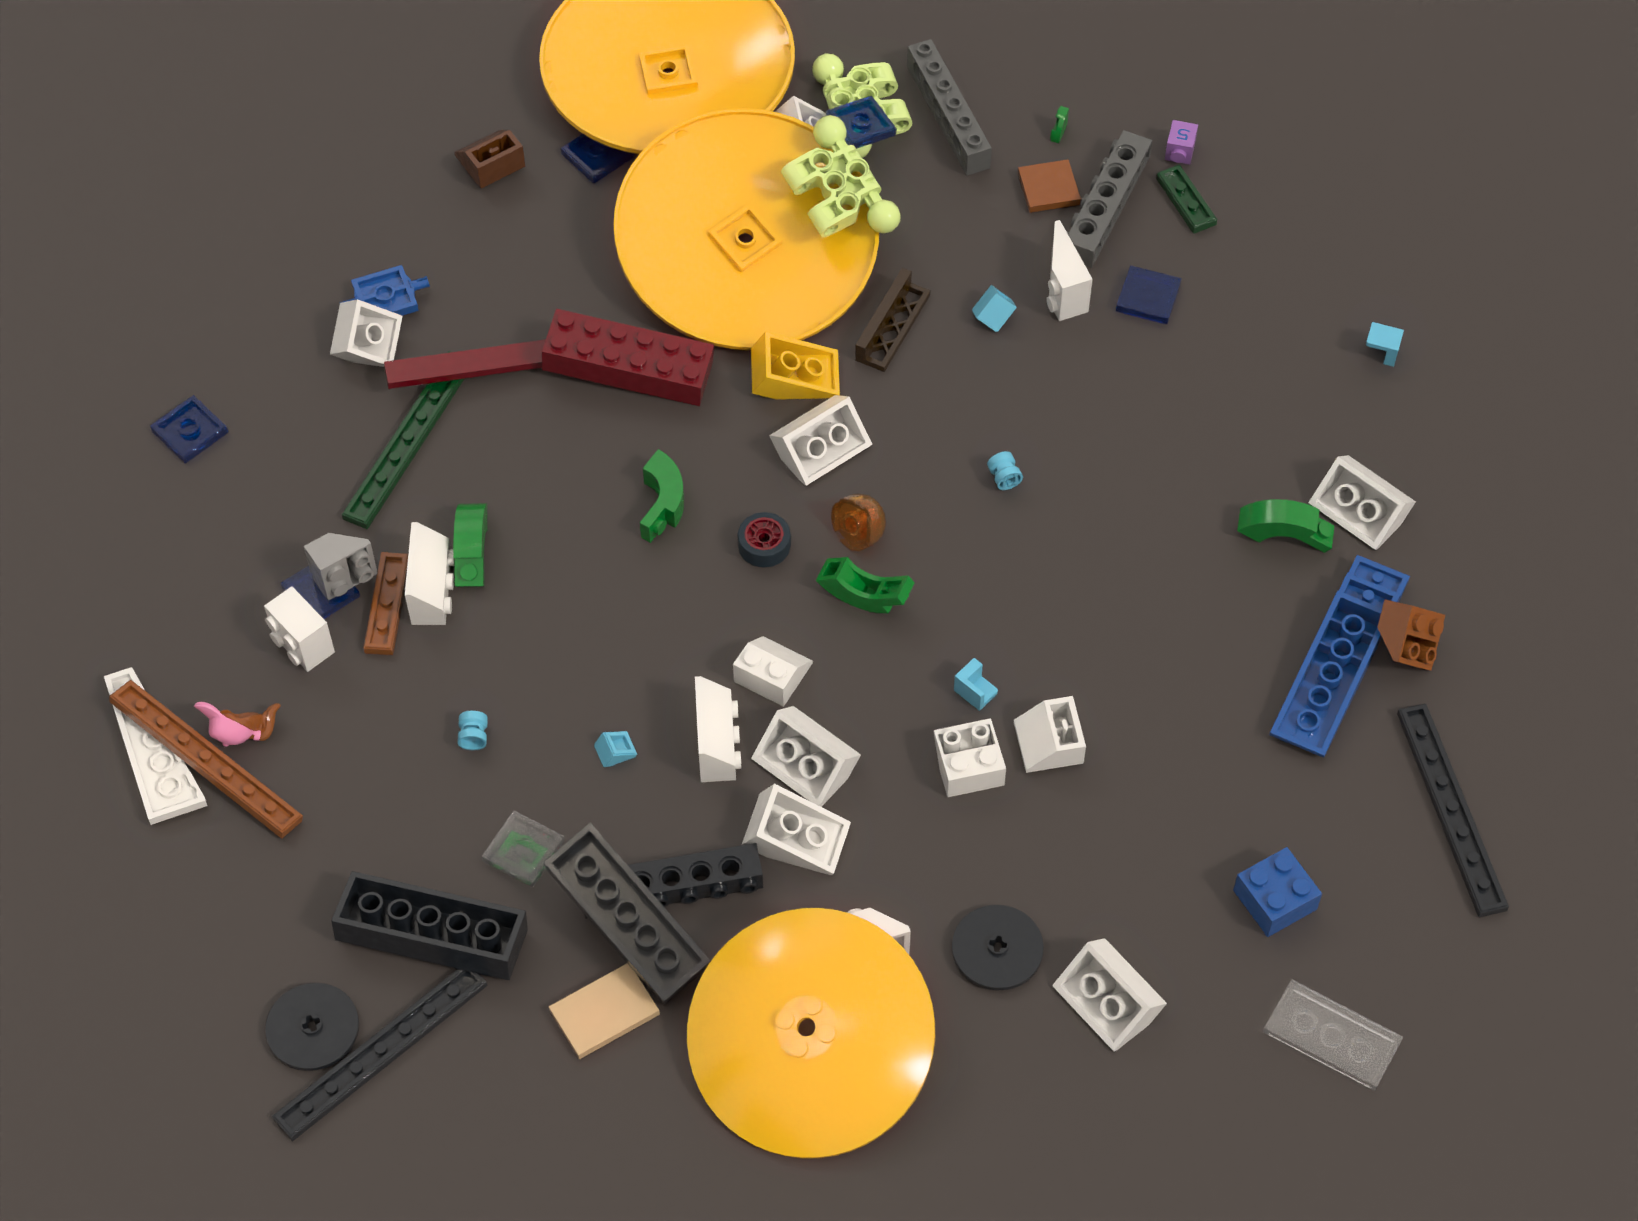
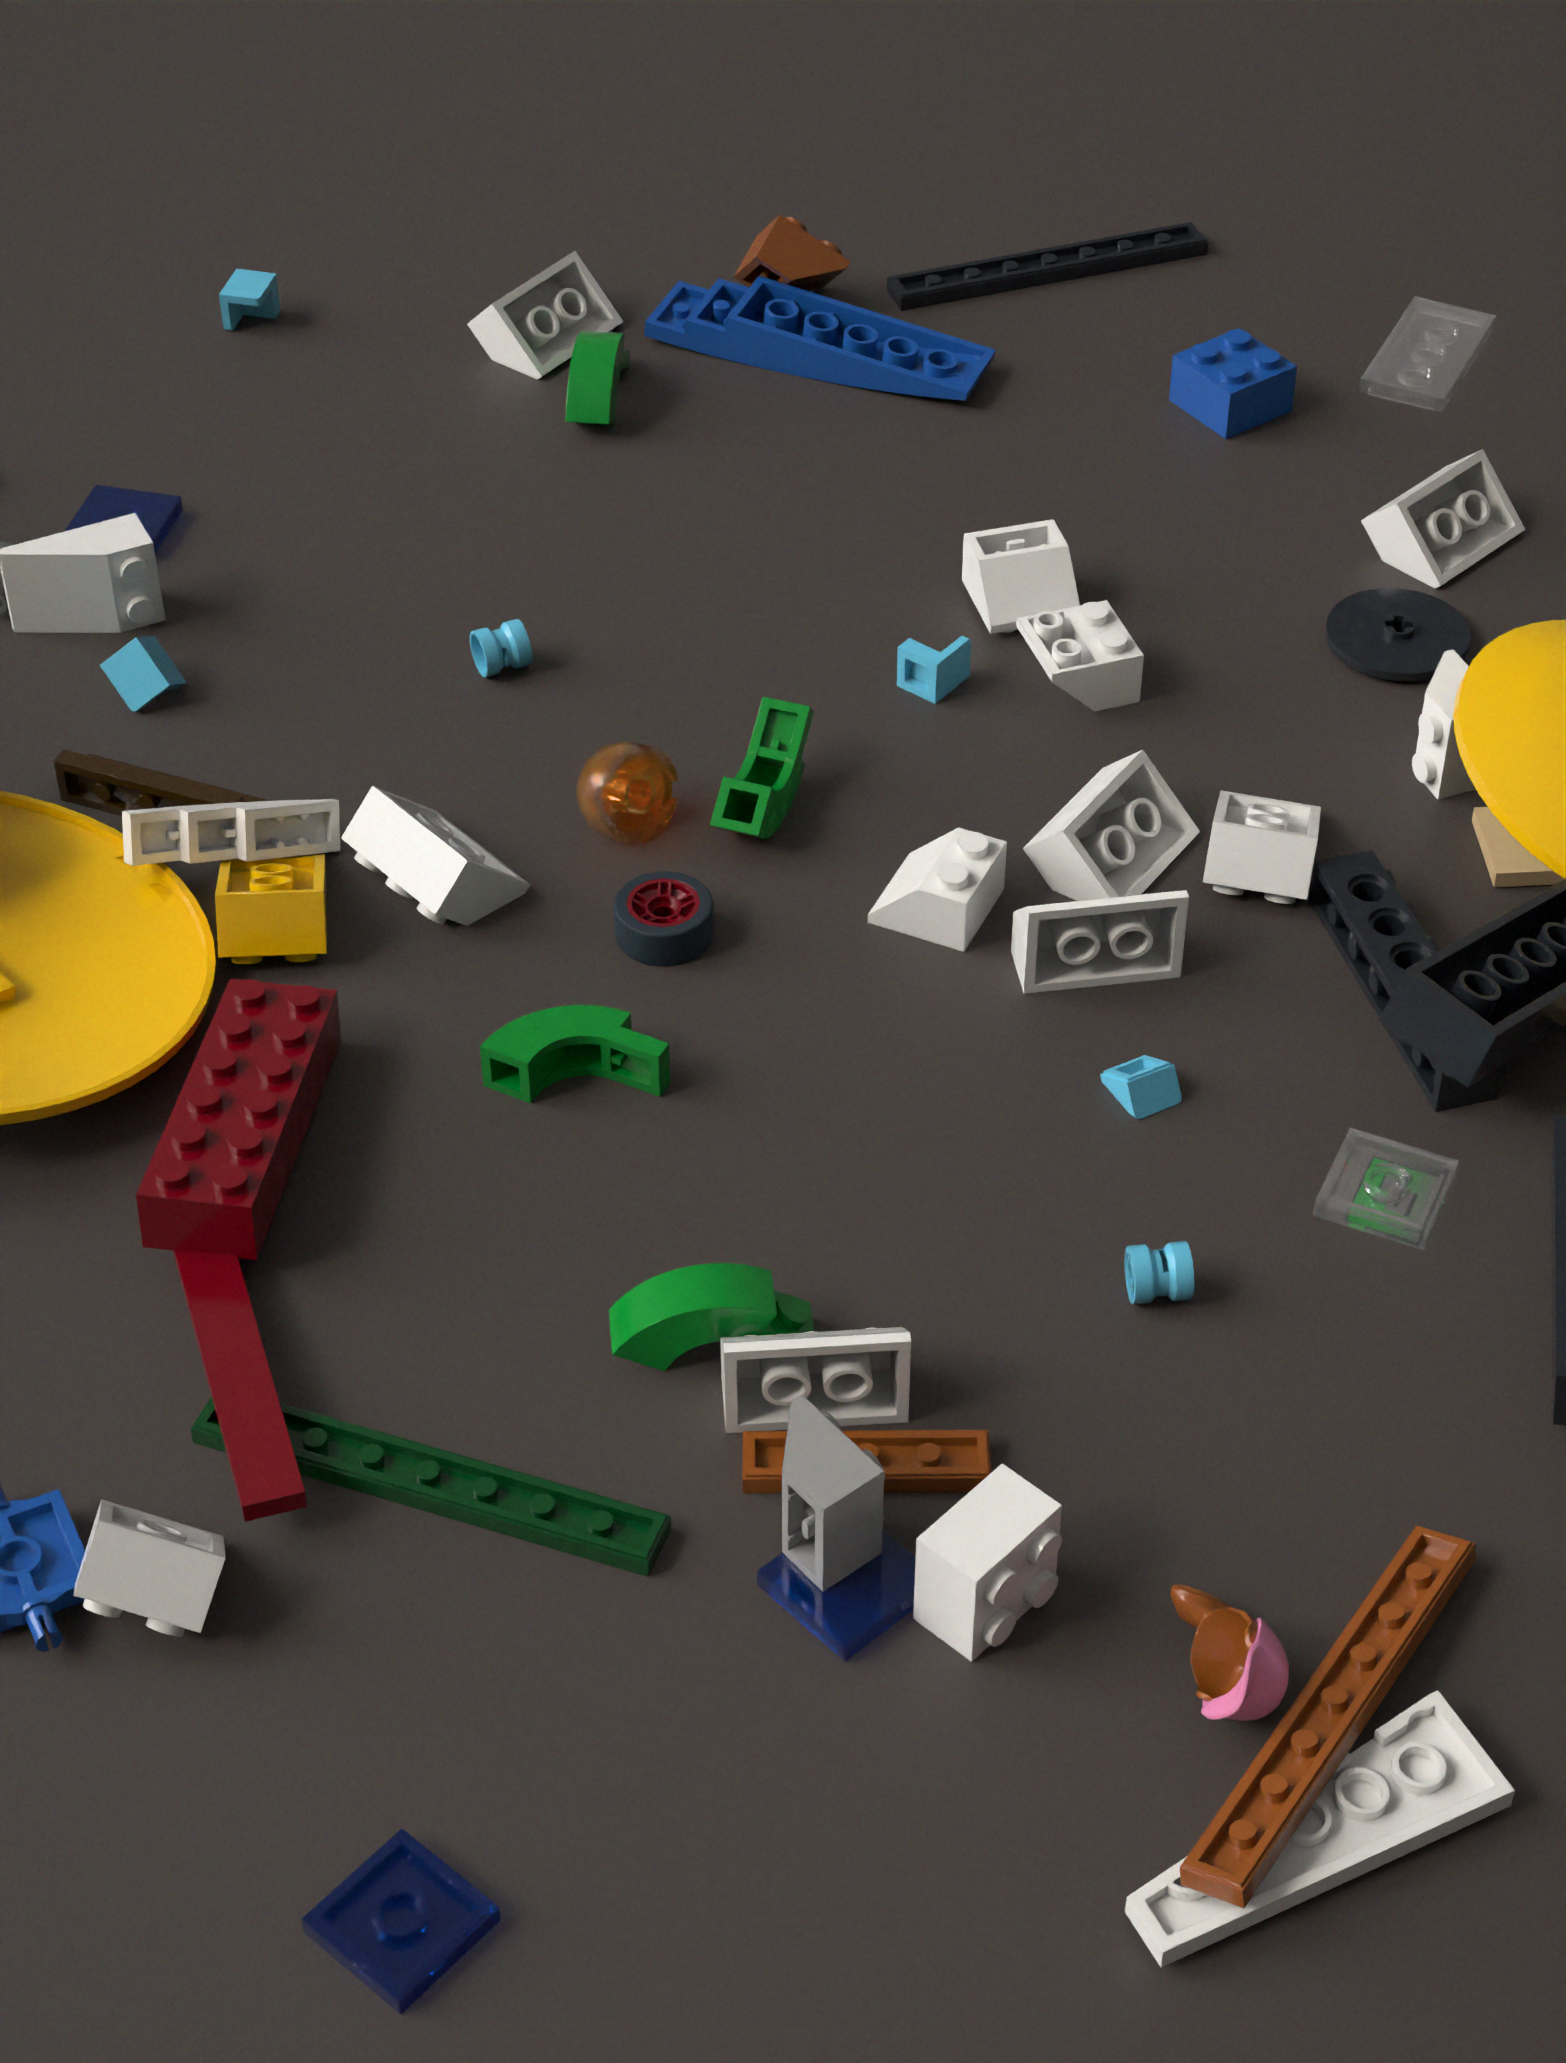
camera: 95 degrees left, 15 degrees down
(842, 347) = (231, 831): none -> white slope

